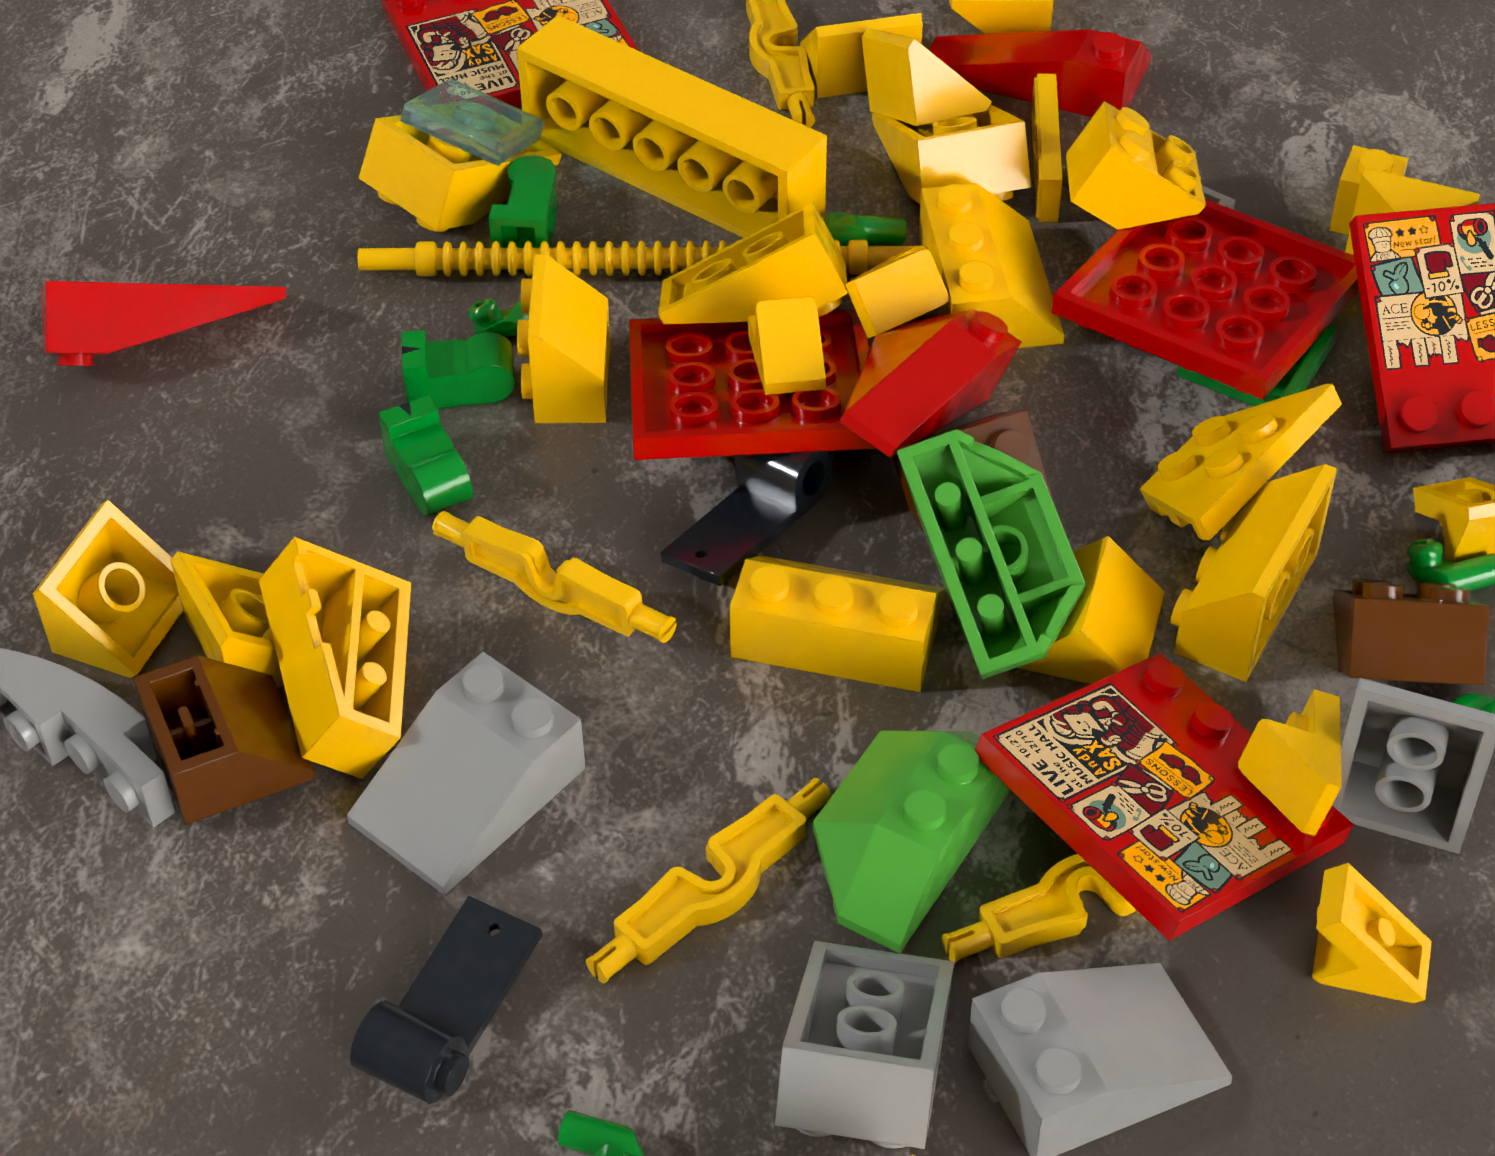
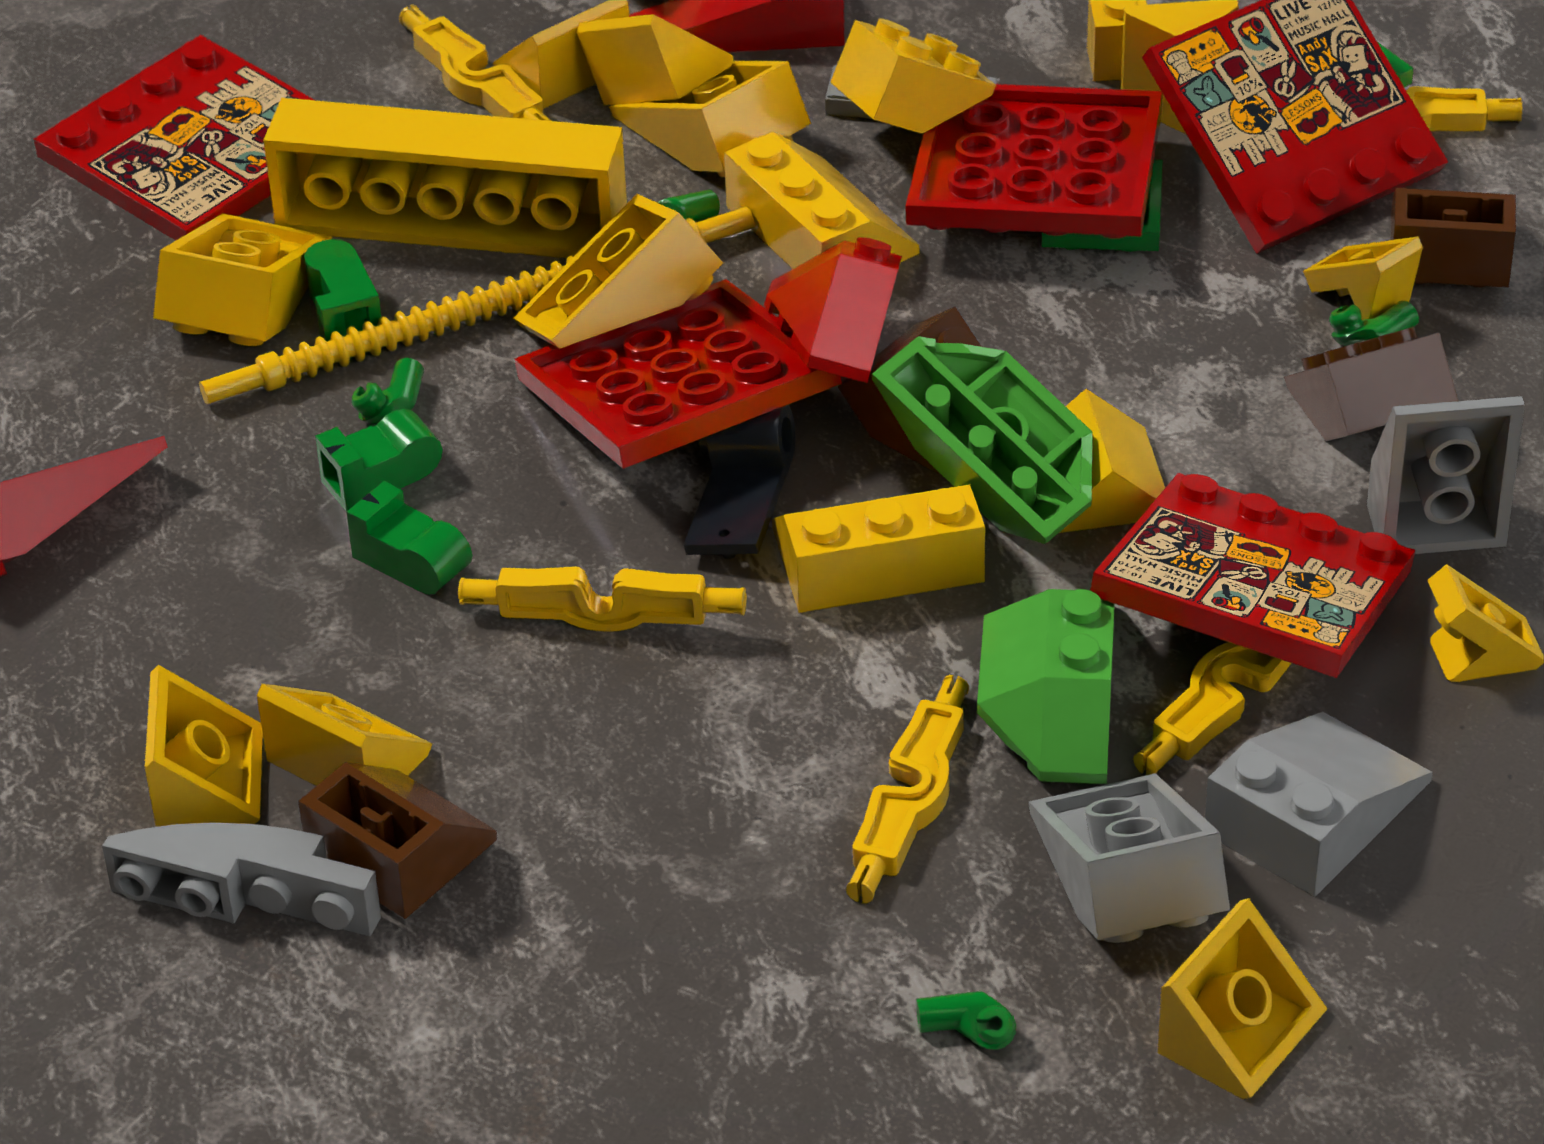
camera: 25 degrees left, 5 degrees down
(339, 653) = (464, 721): yellow wedge -> none
(431, 1033) = (752, 960): black door -> none
(469, 773) = (642, 779): light grey slope -> none
(473, 121) = (242, 227): clear light blue tile -> none
(564, 345) = (476, 401): yellow slope -> none
(787, 345) = (699, 323): yellow slope -> none
(897, 291) = (763, 246): yellow slope -> none
(1046, 148) = (821, 102): yellow tile -> none
(1234, 459) = (1145, 295): yellow wing -> none
(1253, 573) = (1217, 378): yellow slope -> none
(1298, 761) = (1358, 507): yellow slope -> none

